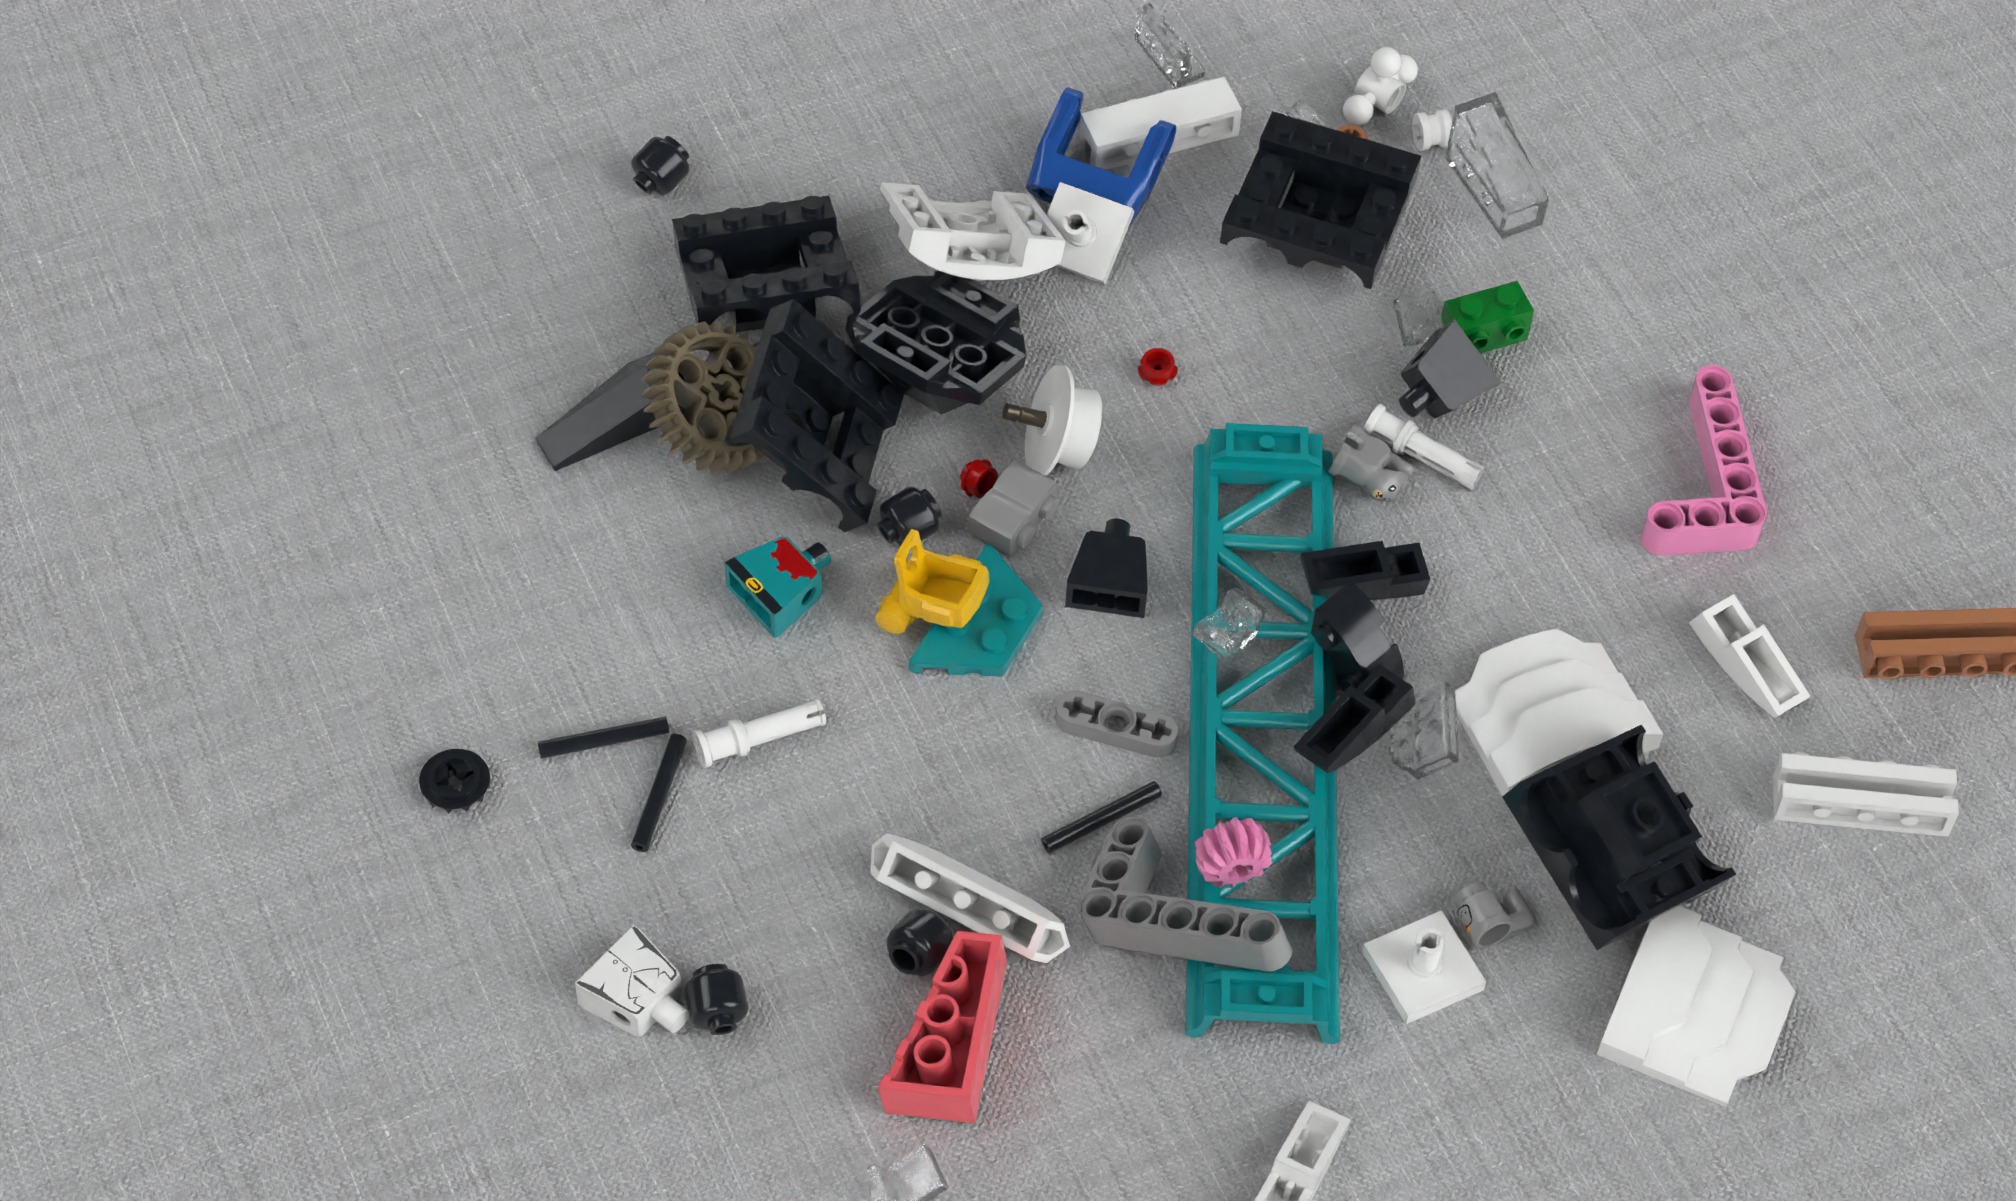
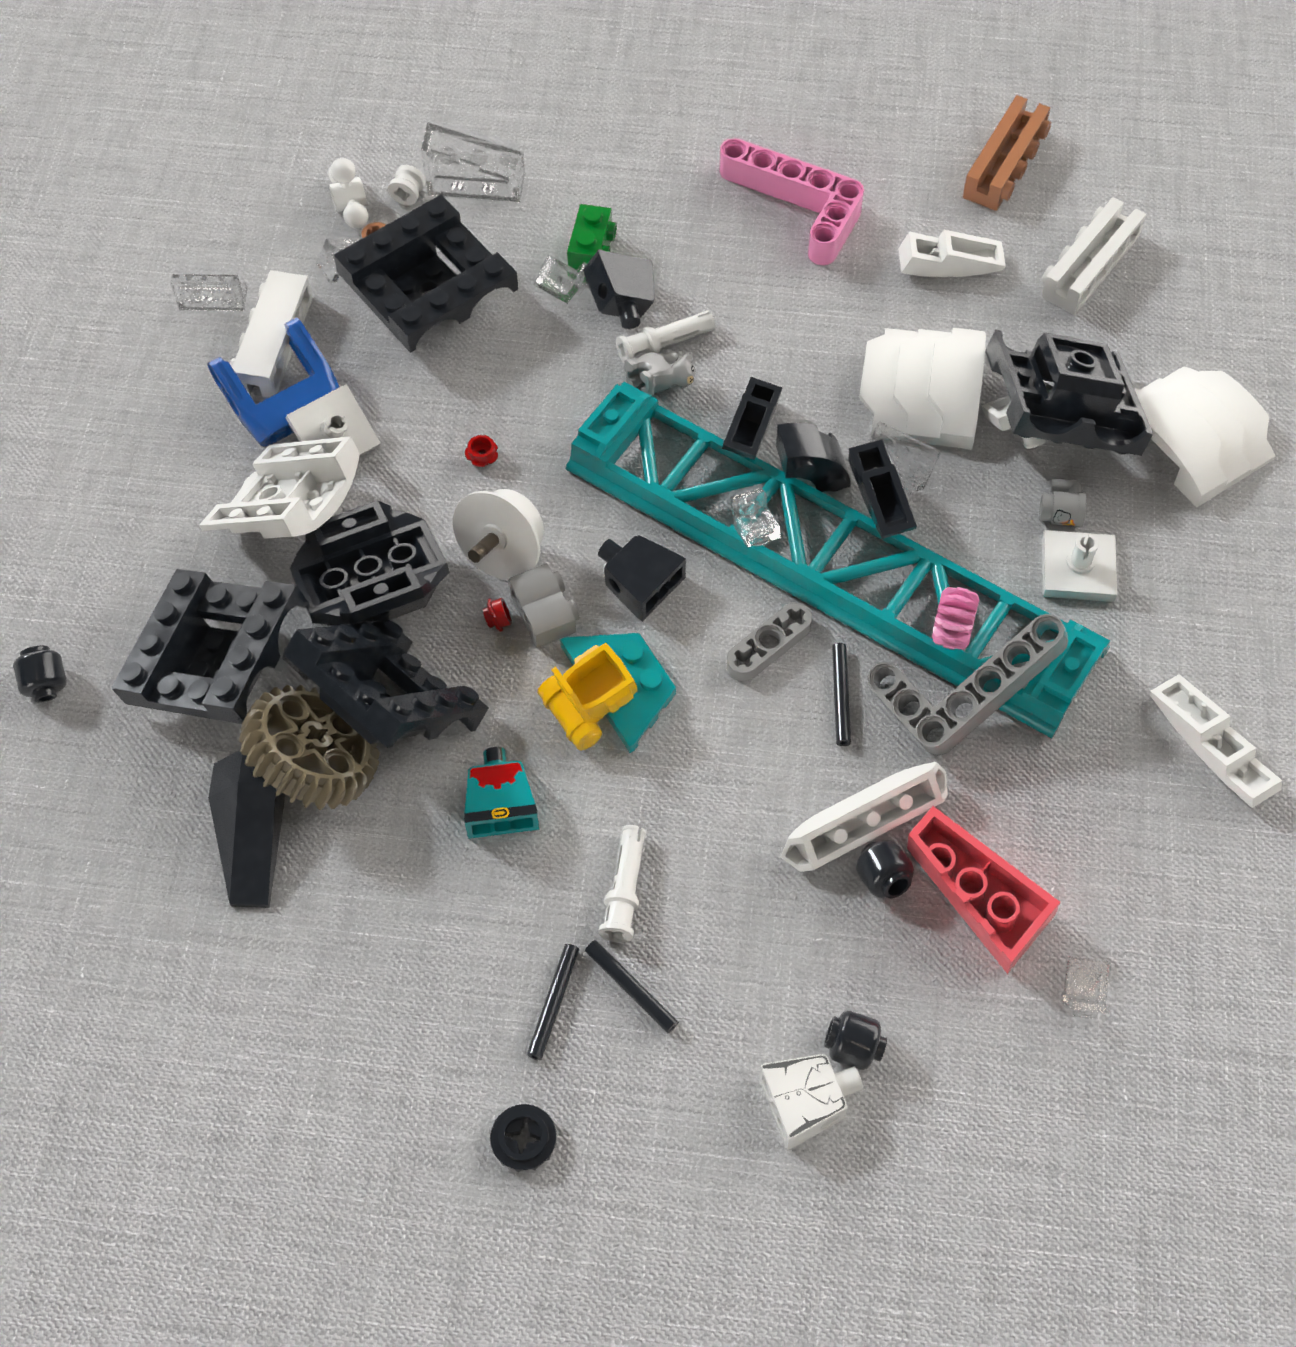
camera: 55 degrees left, 5 degrees up
(909, 511) = (504, 676): black head -> none

